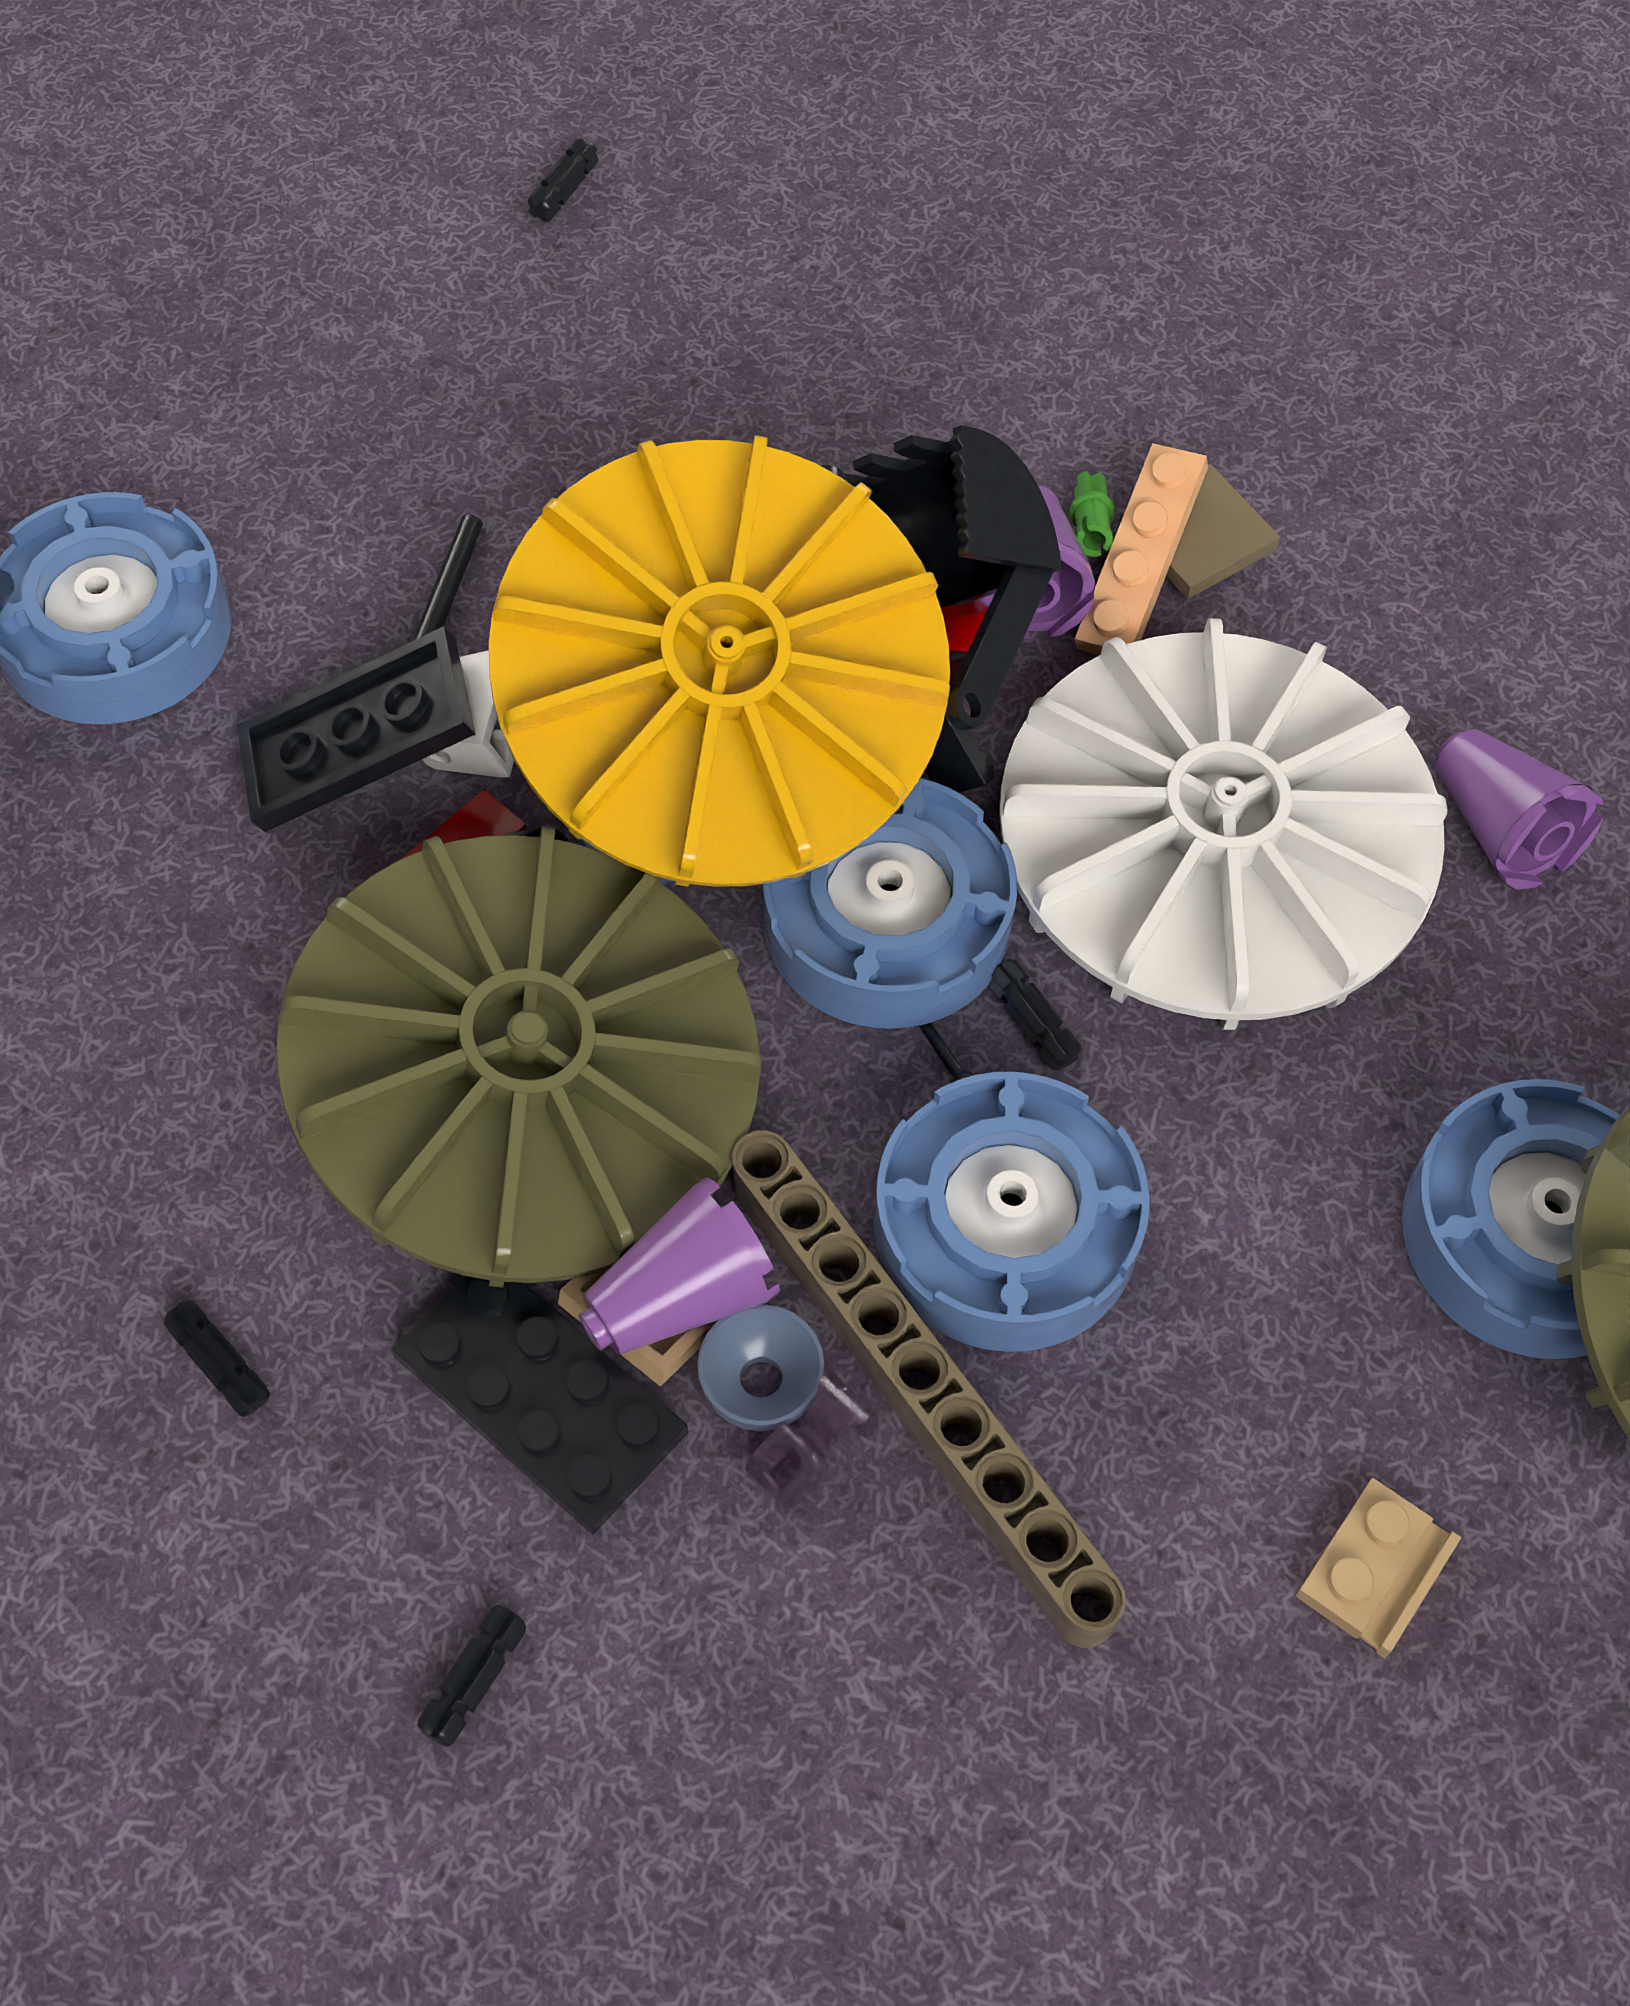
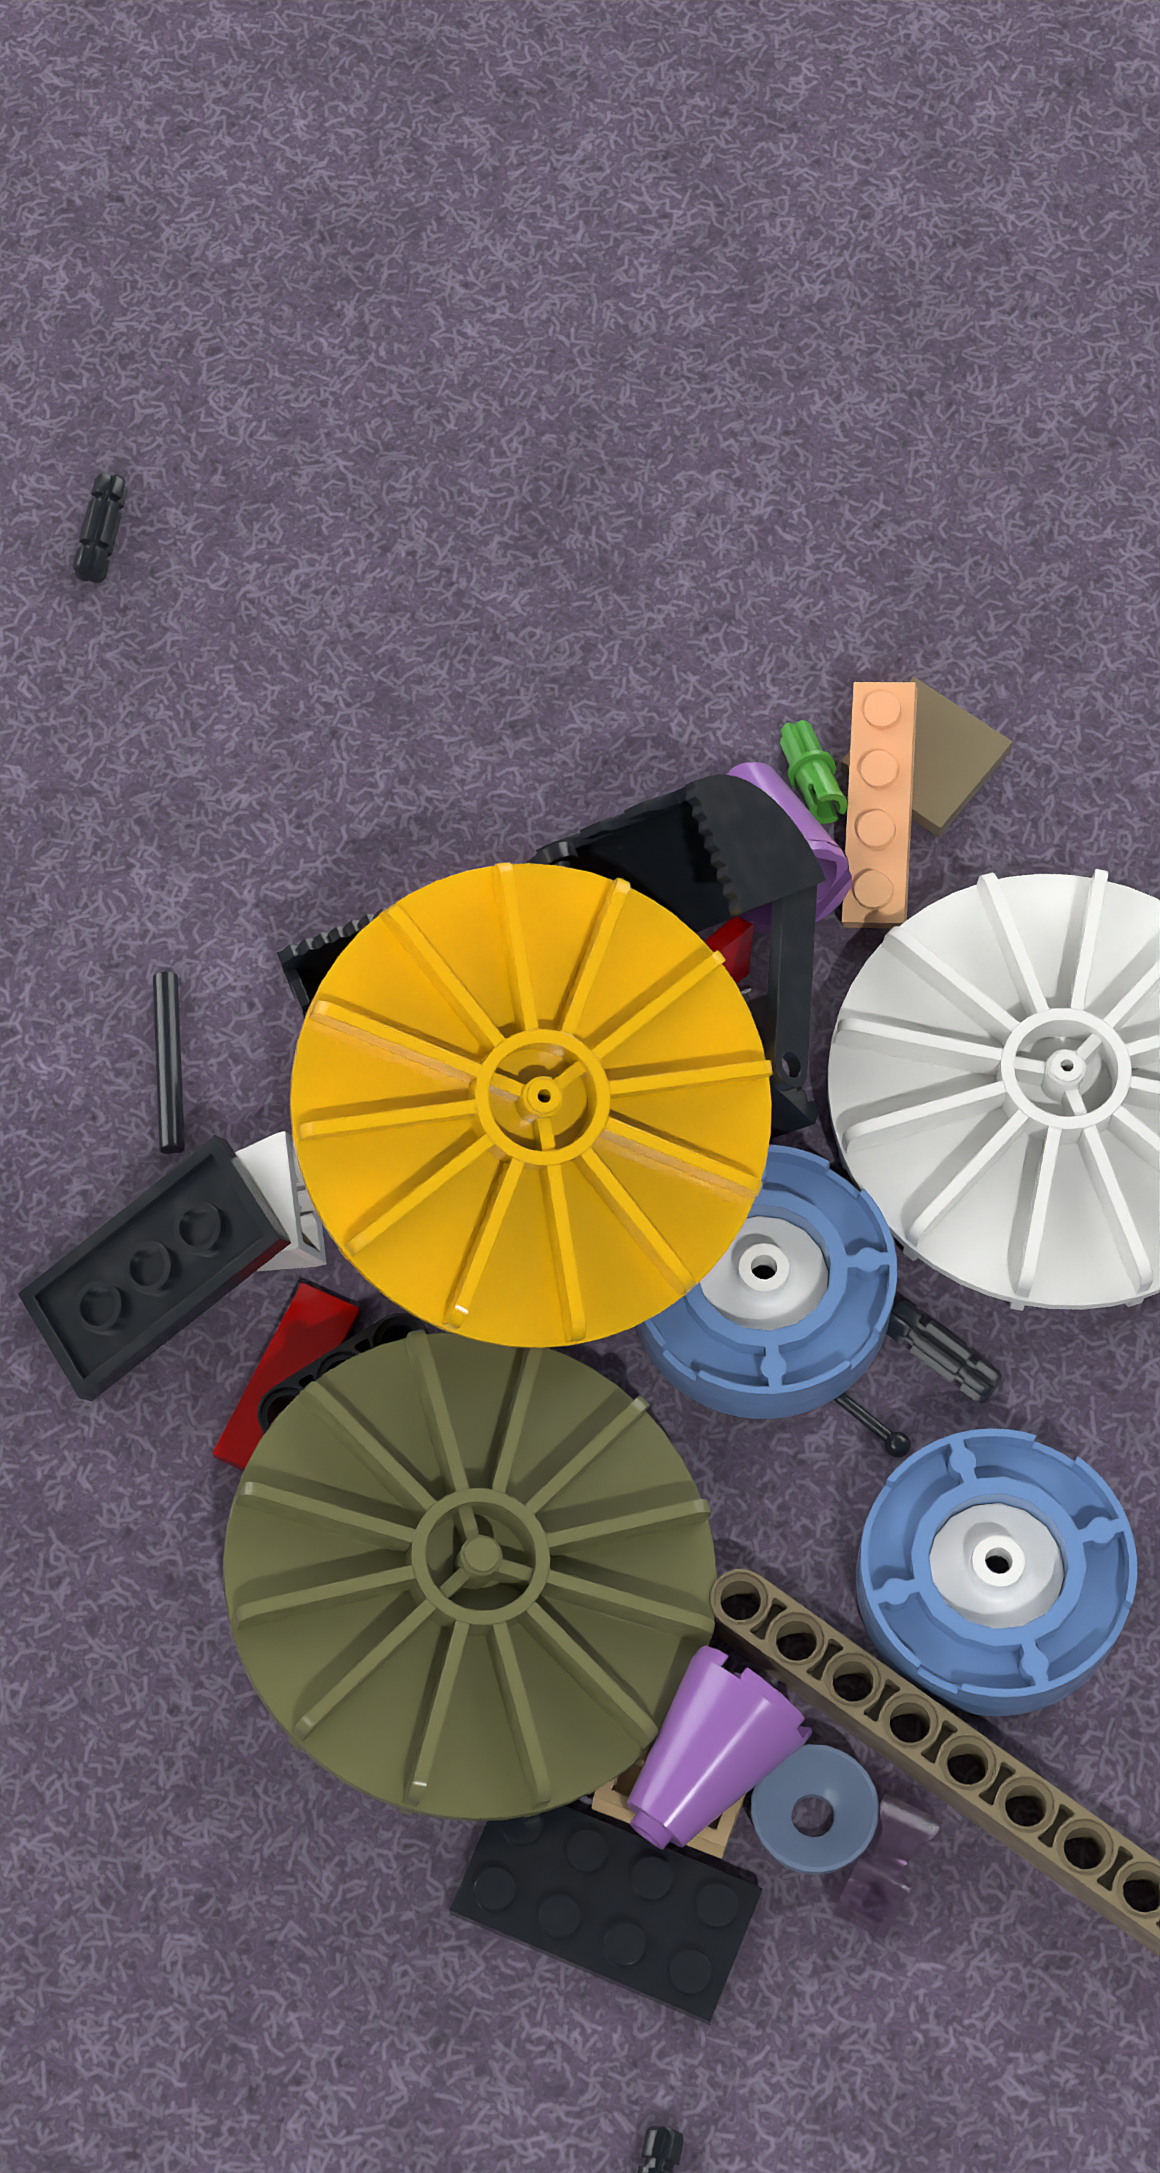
camera: 15 degrees left, 5 degrees up
(216, 1358) = (279, 1975): black axle -> none

